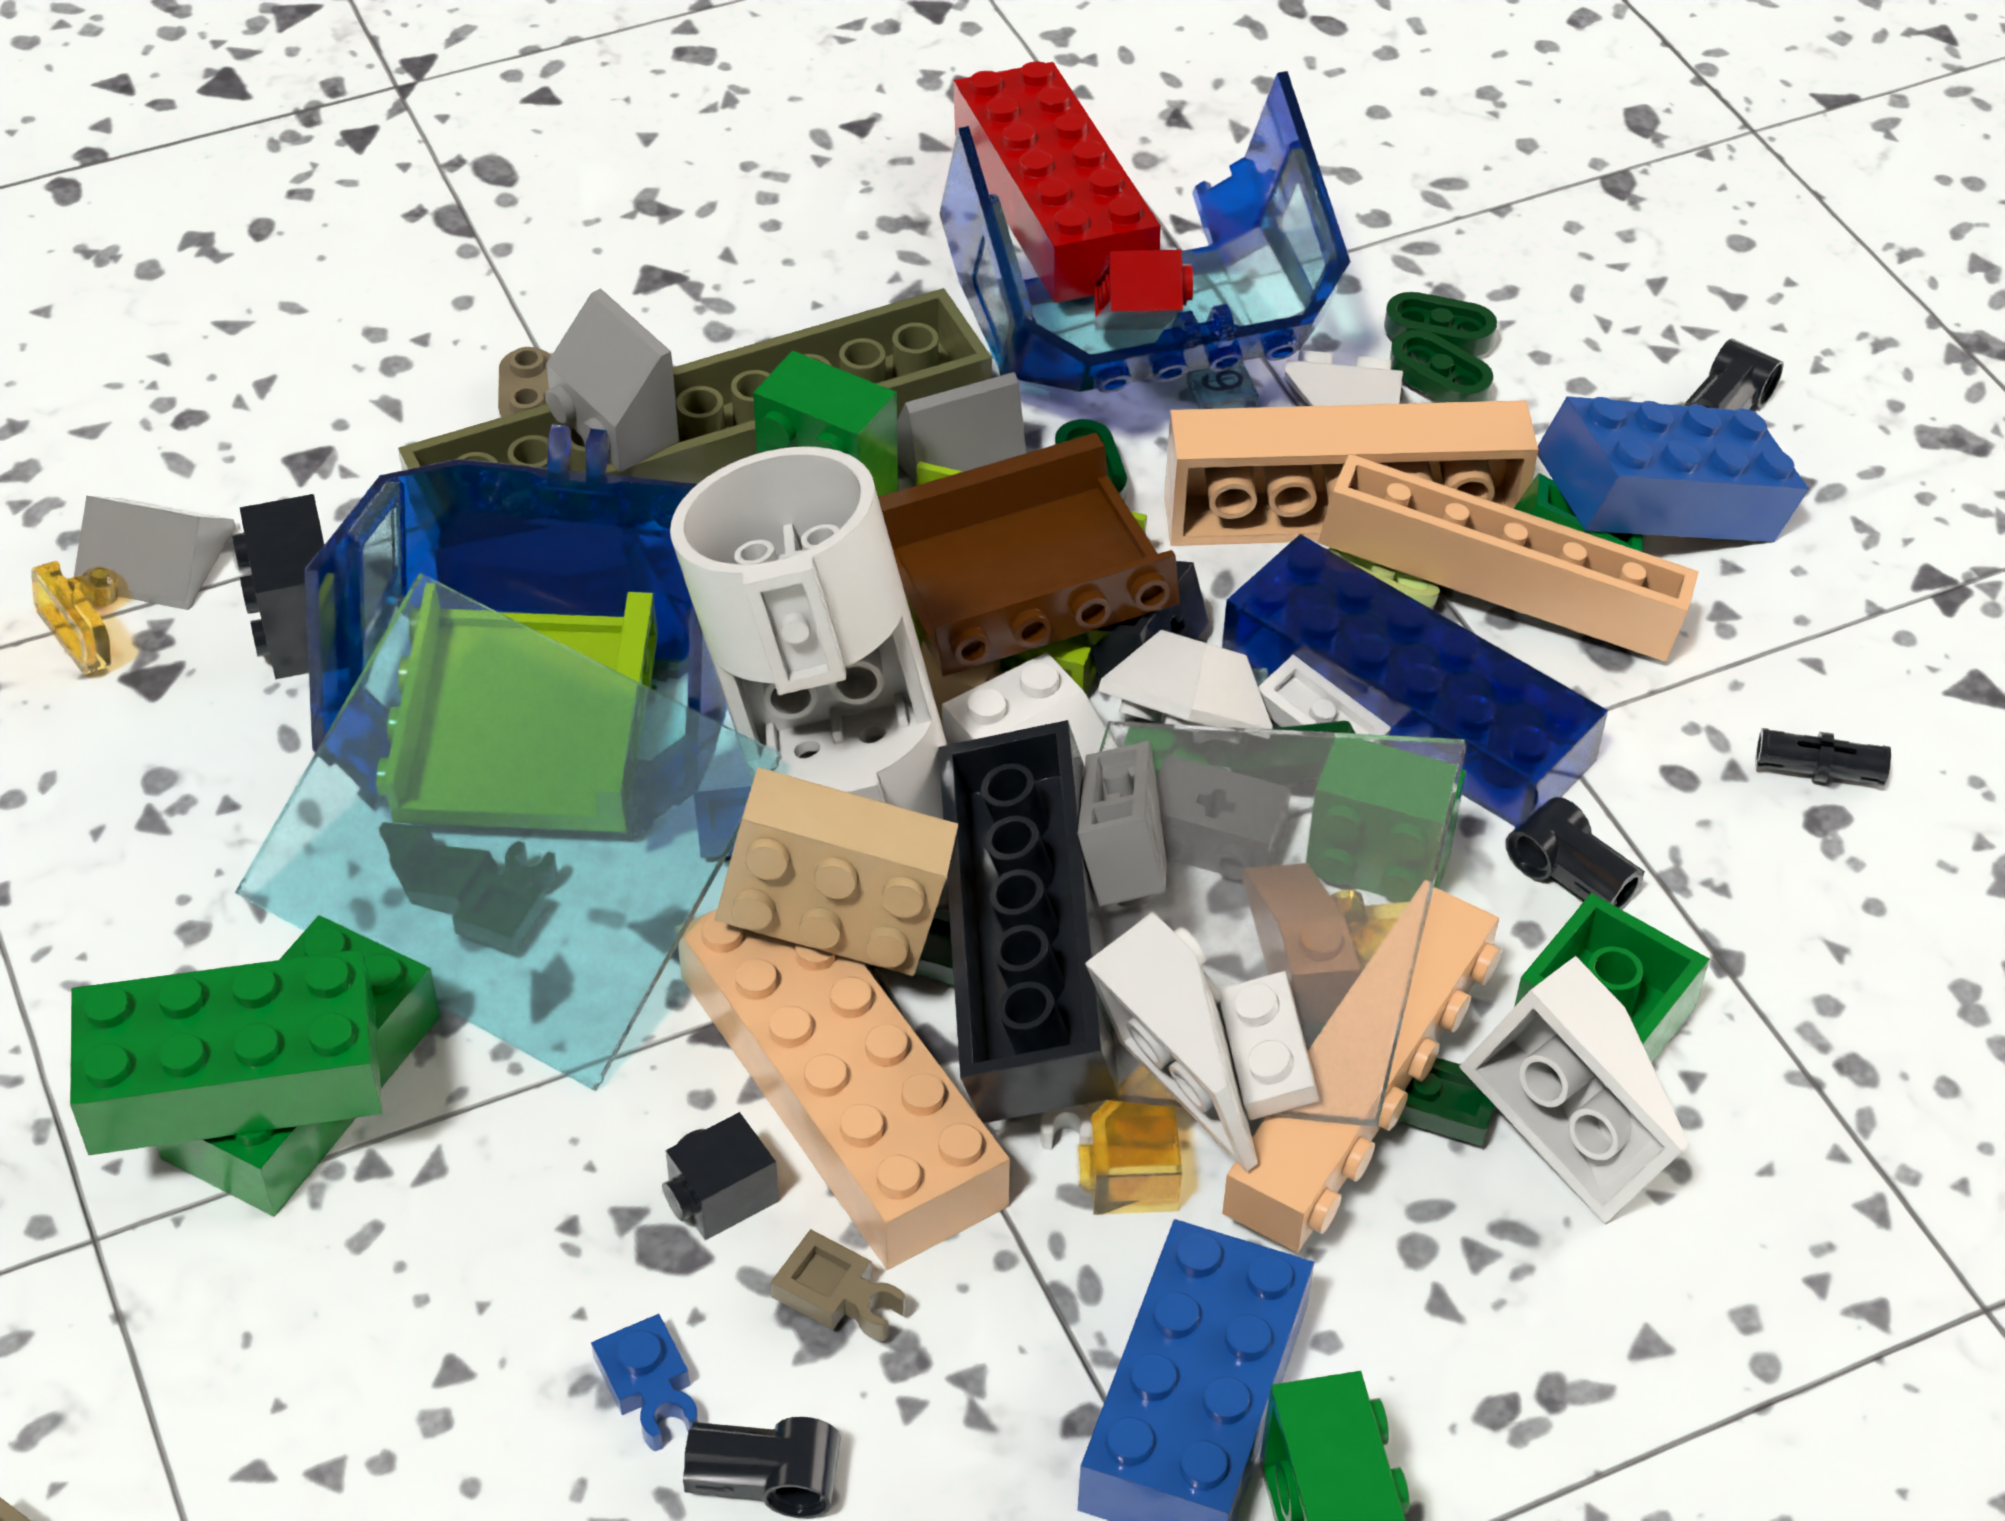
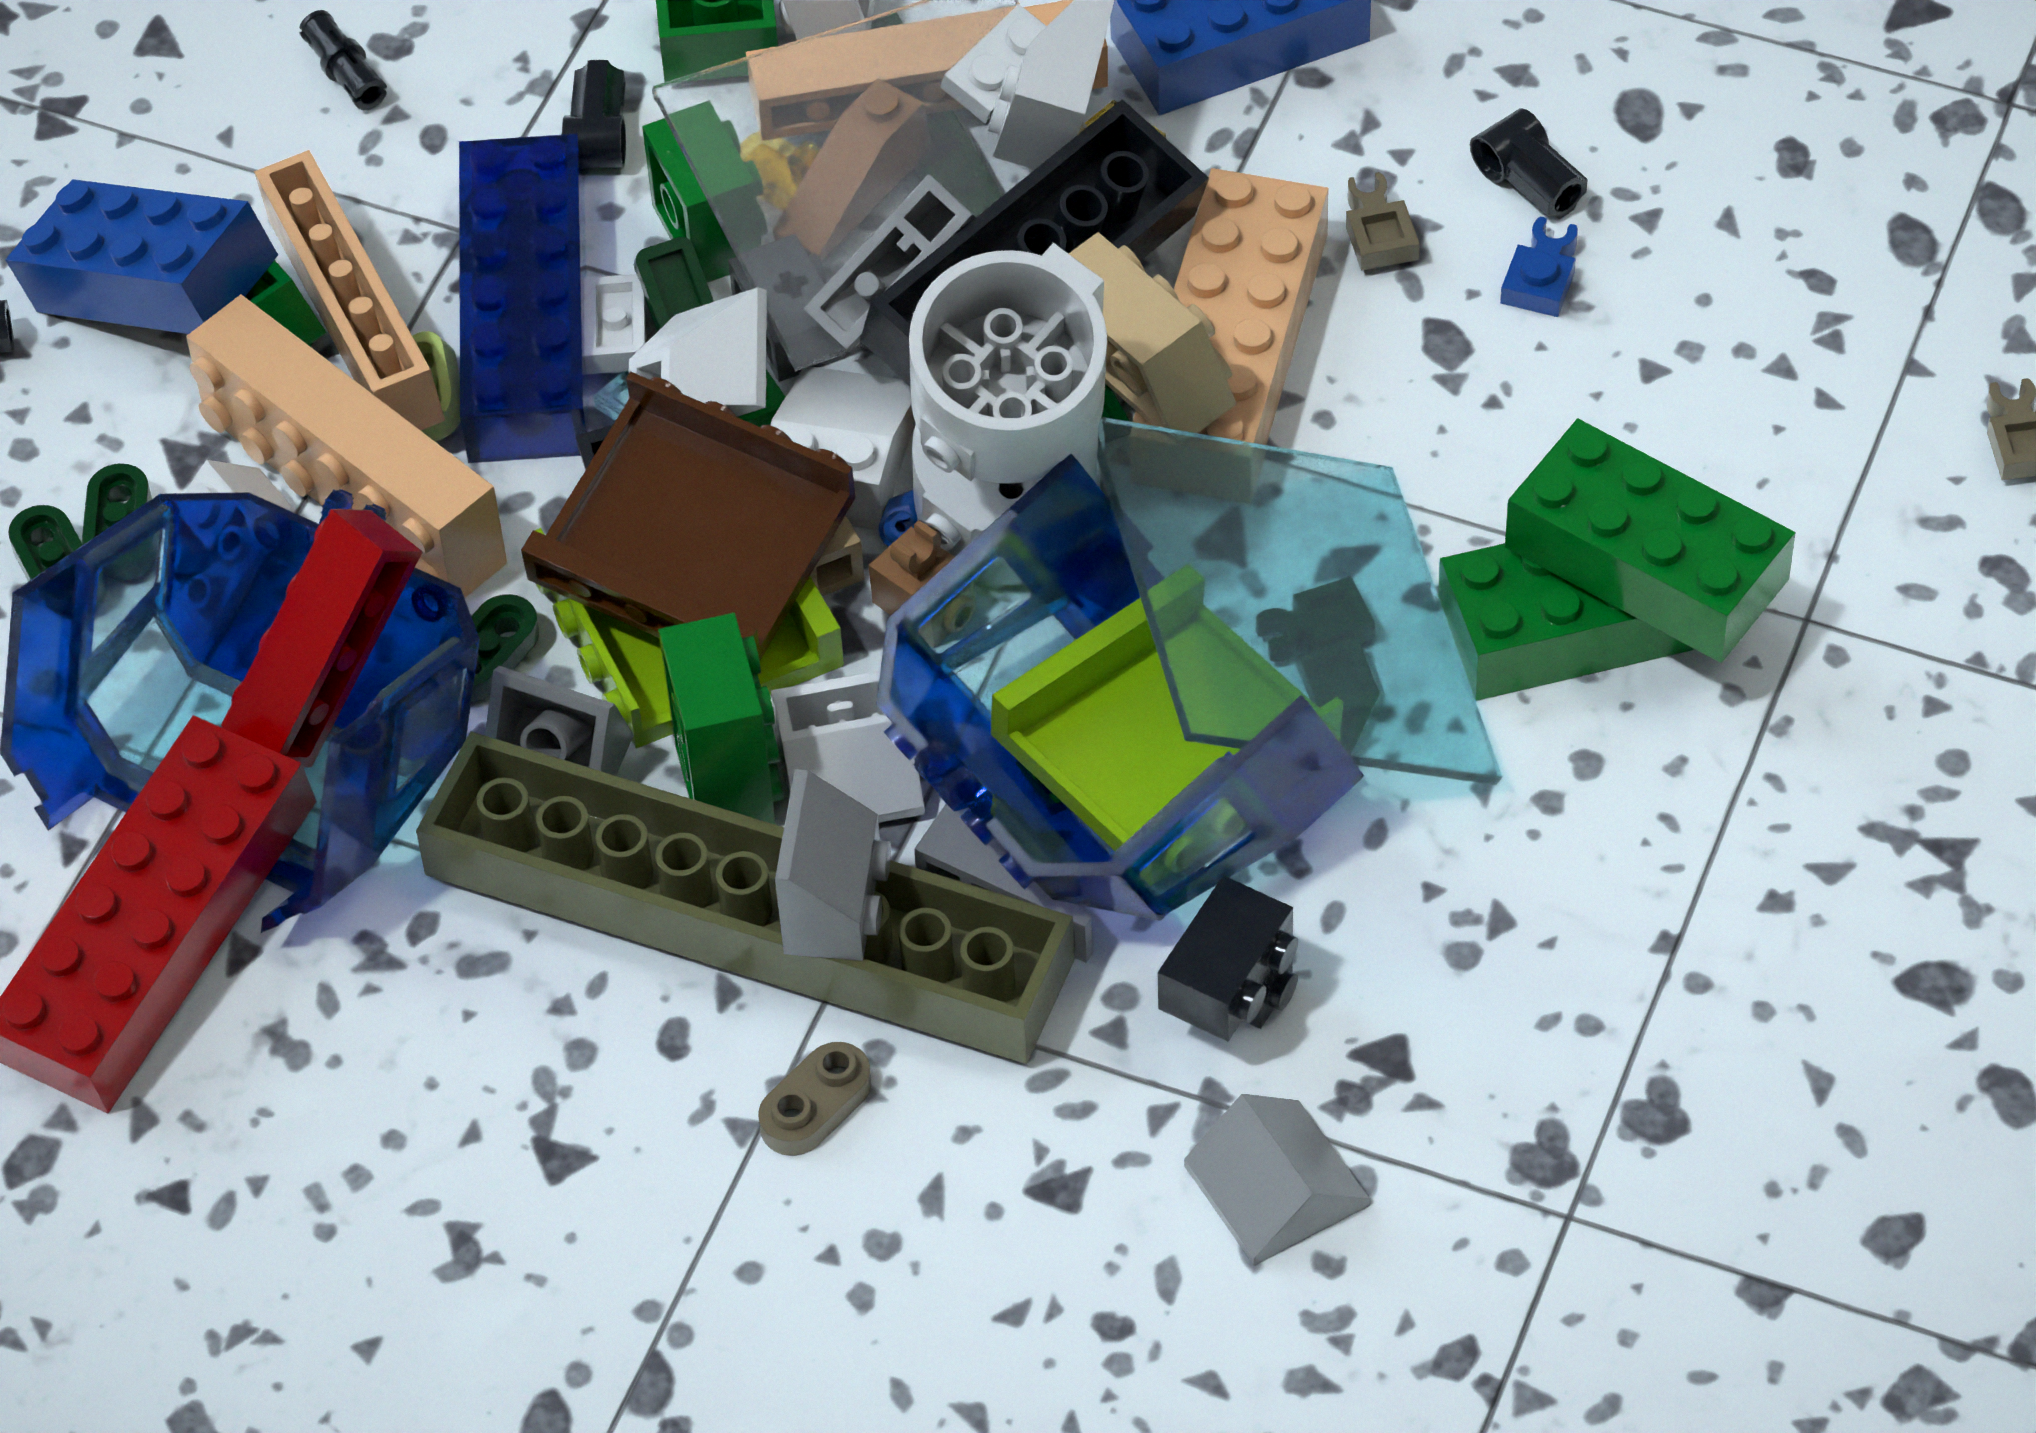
camera: 130 degrees left, 5 degrees up
(69, 611) = (1408, 1154): clear yellow piece -> none
(720, 1176) = (1379, 330): black brick -> none

